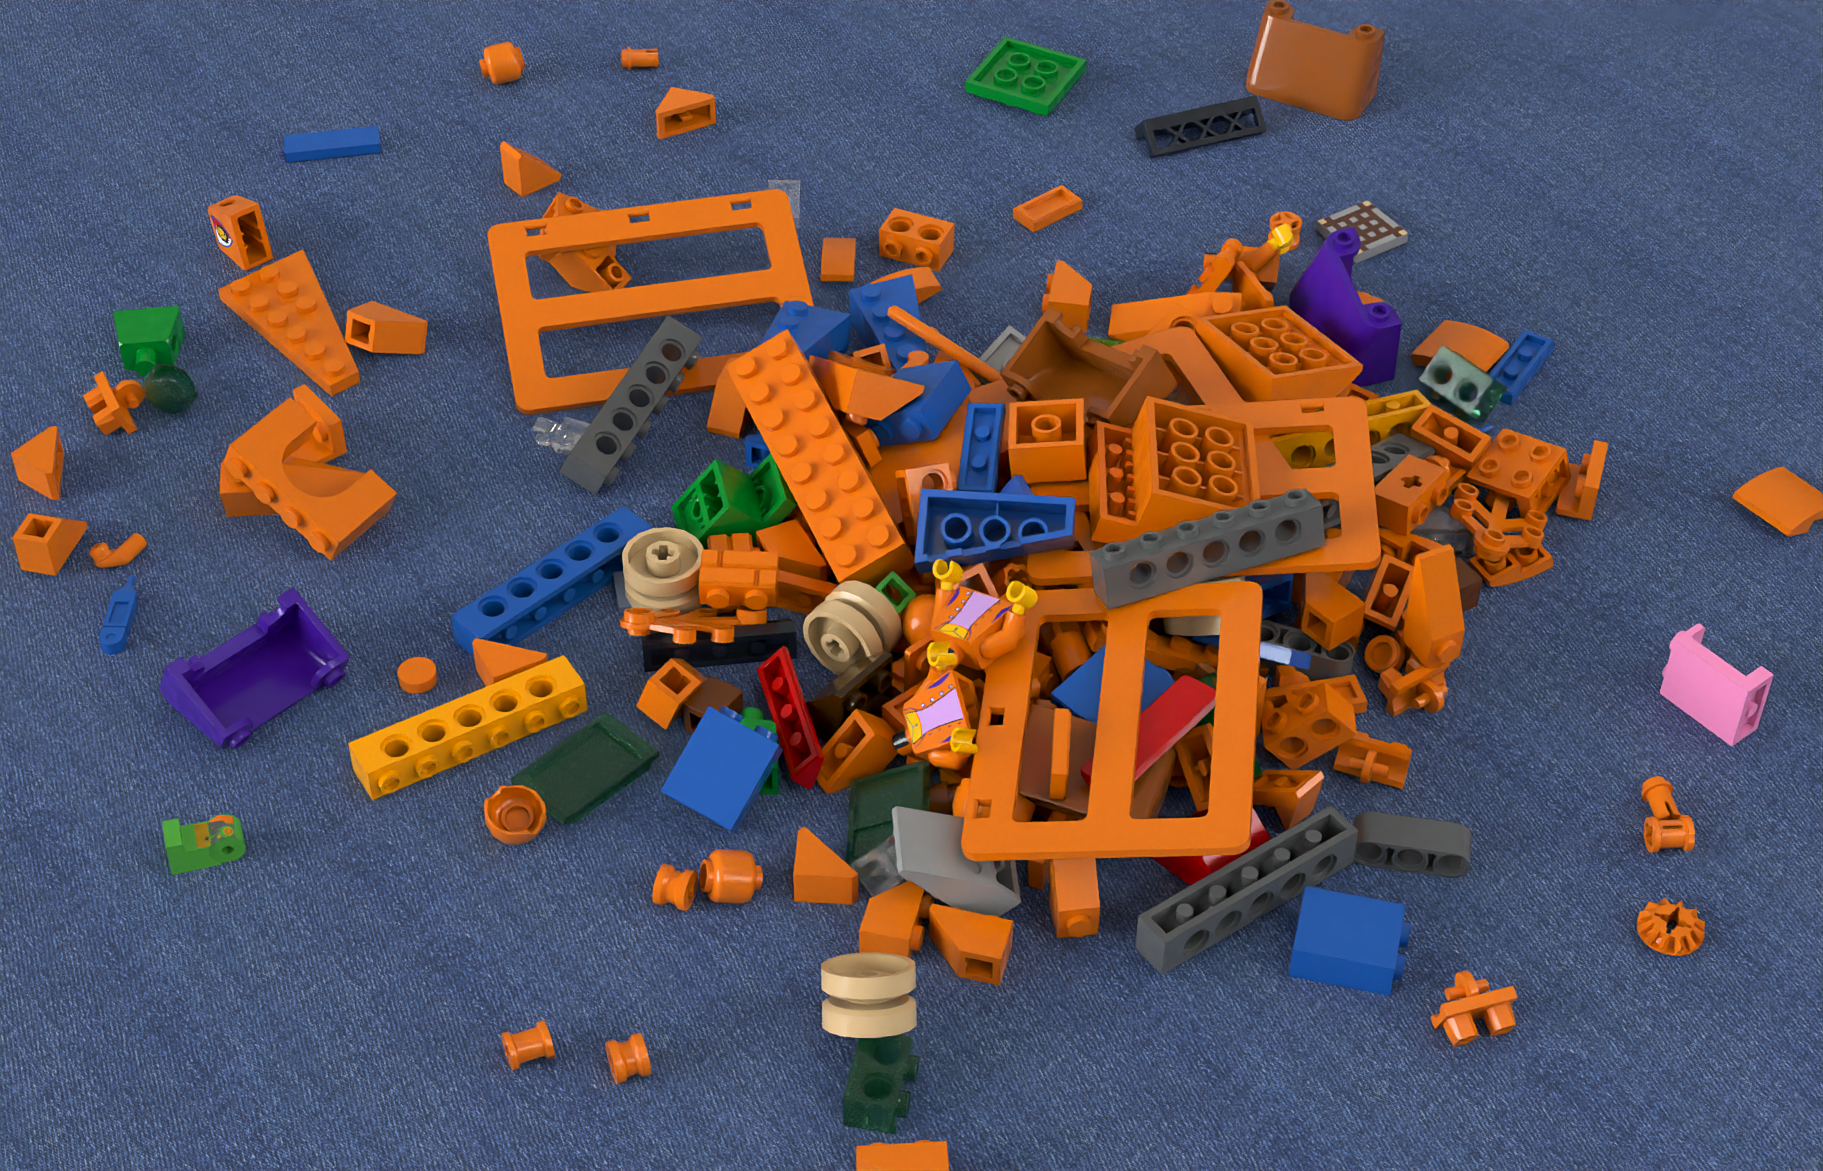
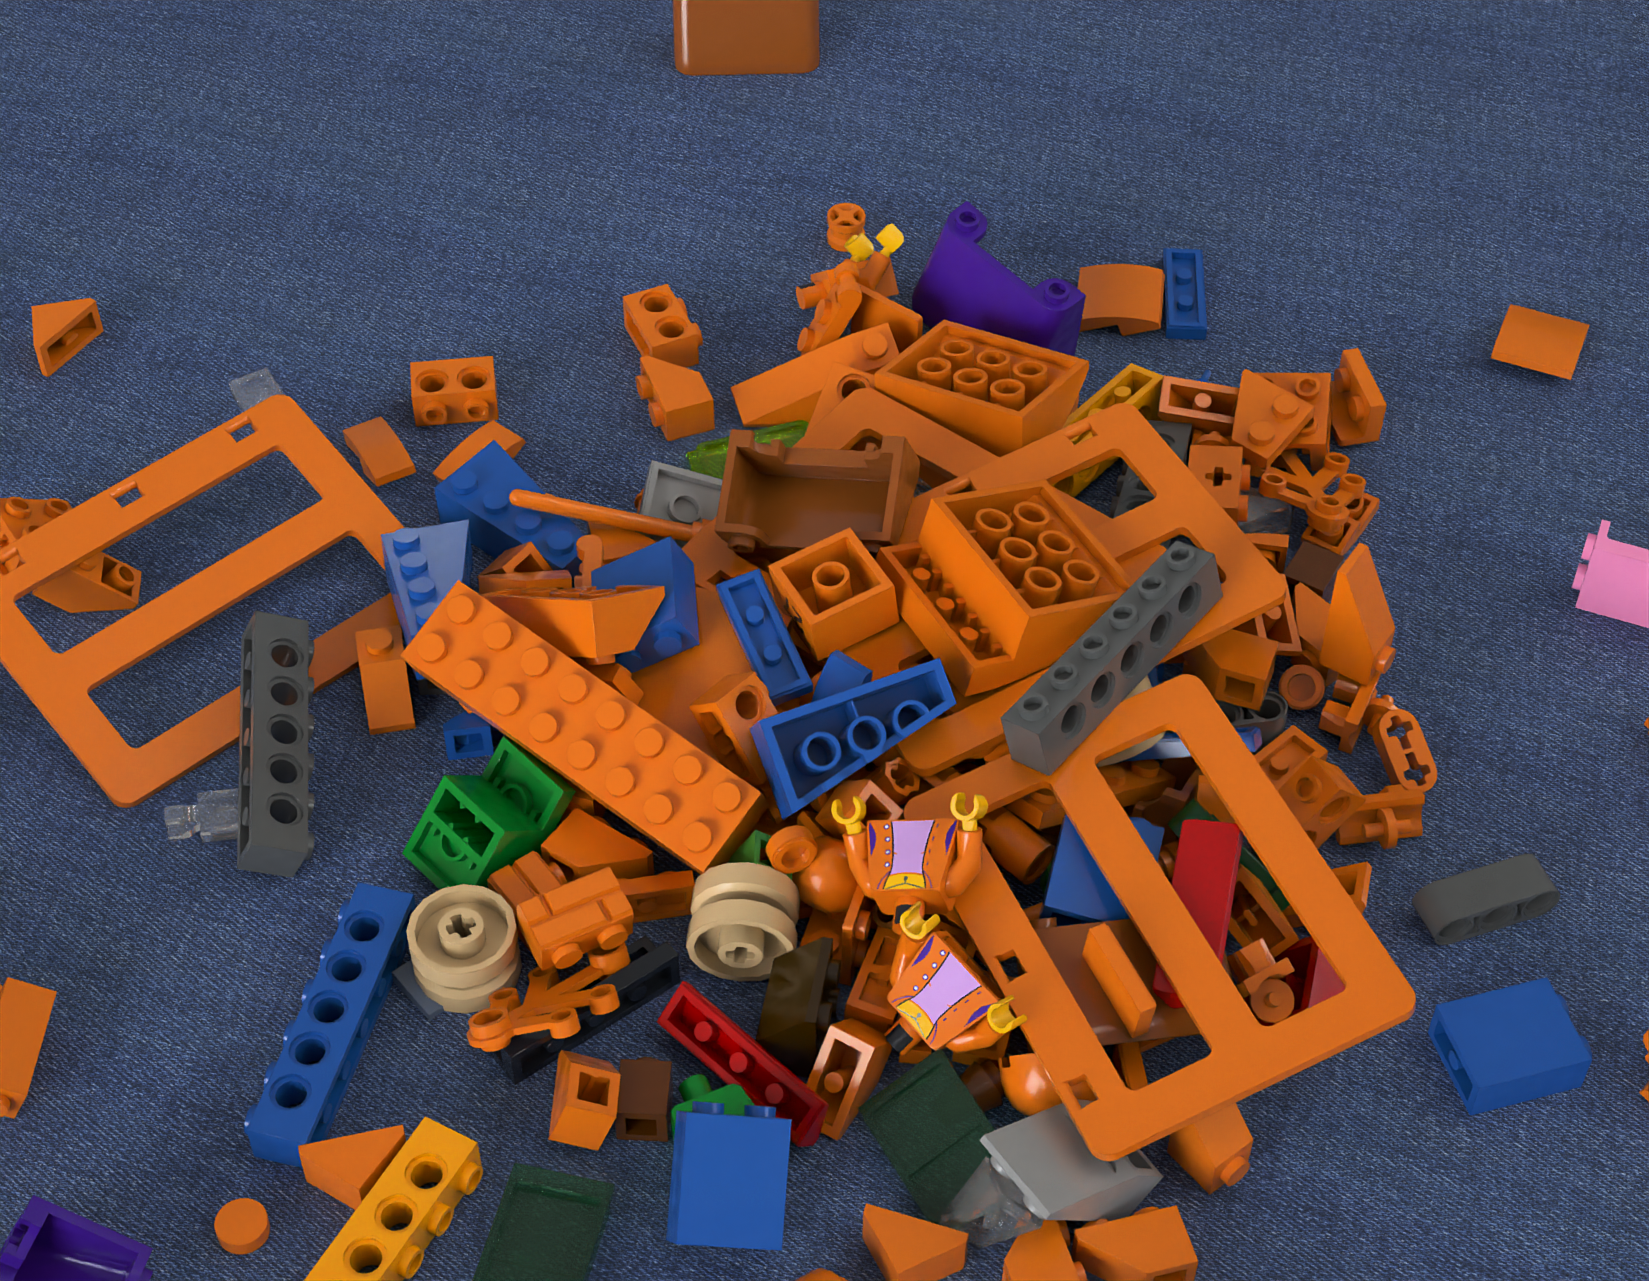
camera: 30 degrees left, 5 degrees up
(904, 589) = (791, 849): none -> orange tile
(1025, 76) = (433, 142): green plate -> none
(1047, 208) = (568, 295): orange tile -> none
(1095, 249) = (662, 326): none -> orange brick
(1175, 797) = (1259, 977): none -> orange hips
(1201, 119) = (660, 126): black fence -> none
(1245, 889) = (1368, 1067): dark grey brick -> none
(1373, 227) = (920, 196): tile -> none
(1434, 727) = (1413, 747): none -> orange beam
(1464, 380) = (1160, 328): clear green brick -> none
(1487, 461) = (1266, 419): none -> orange wing

